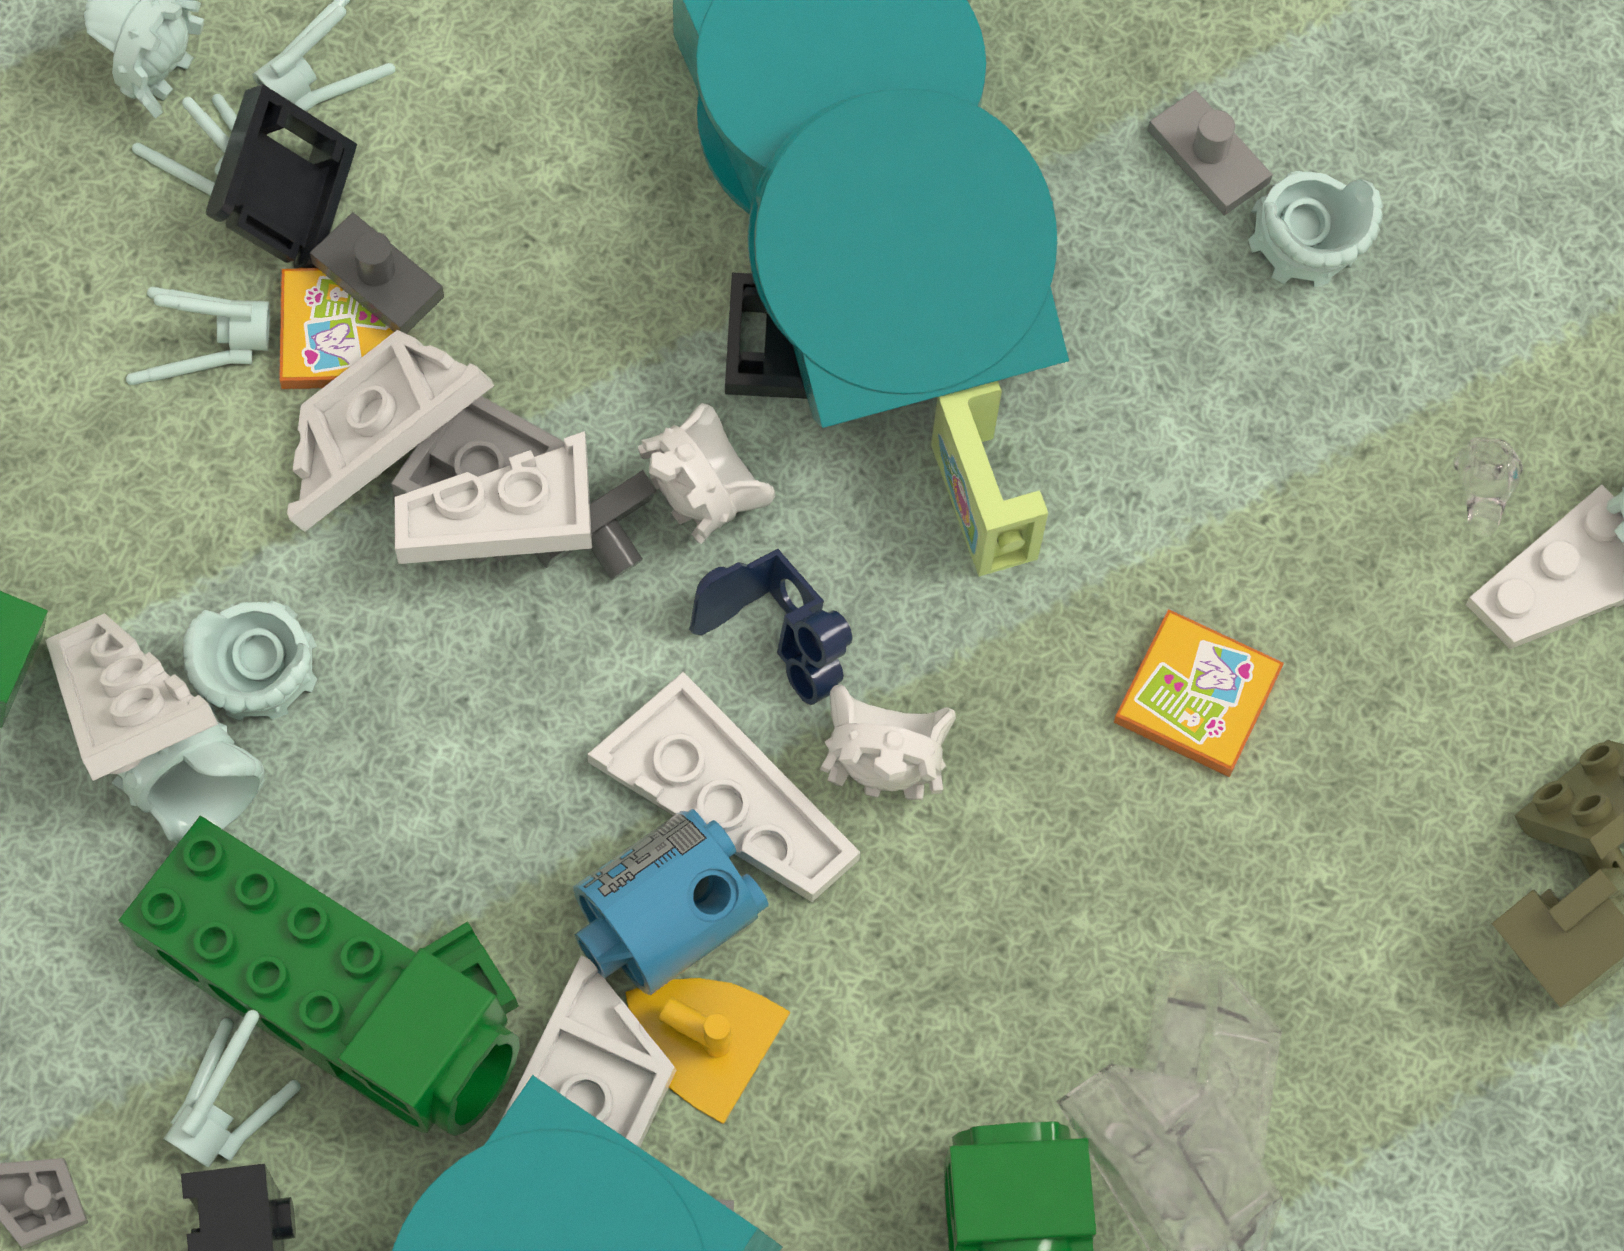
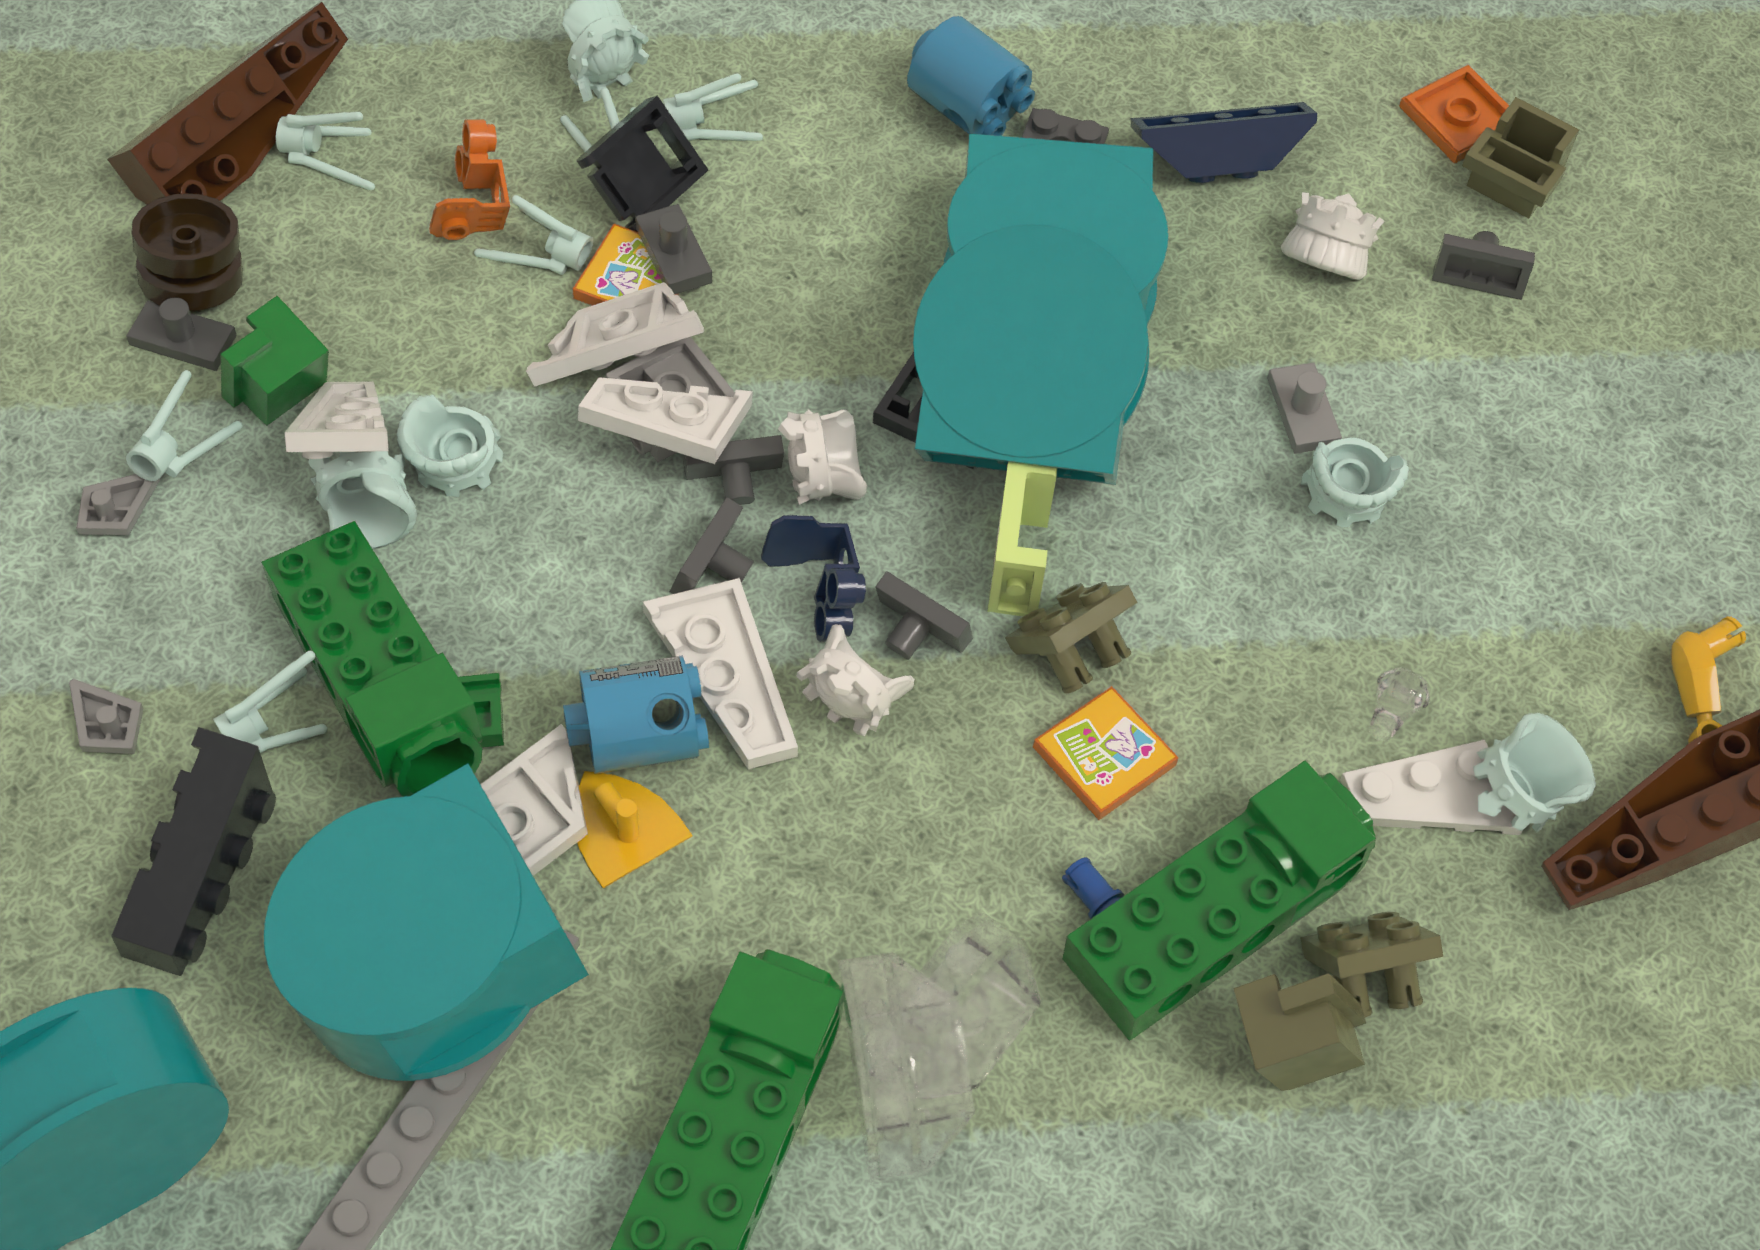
camera: 25 degrees right, 10 degrees down
(71, 270) = (463, 216): none -> orange piece
(633, 654) = (713, 552): none -> dark grey tile
(913, 627) = (919, 618): none -> dark grey tile
(1091, 558) = (1077, 615): none -> olive plate
(1271, 869) = (1090, 886): none -> blue pin
(1421, 817) = (1222, 899): none -> green brick

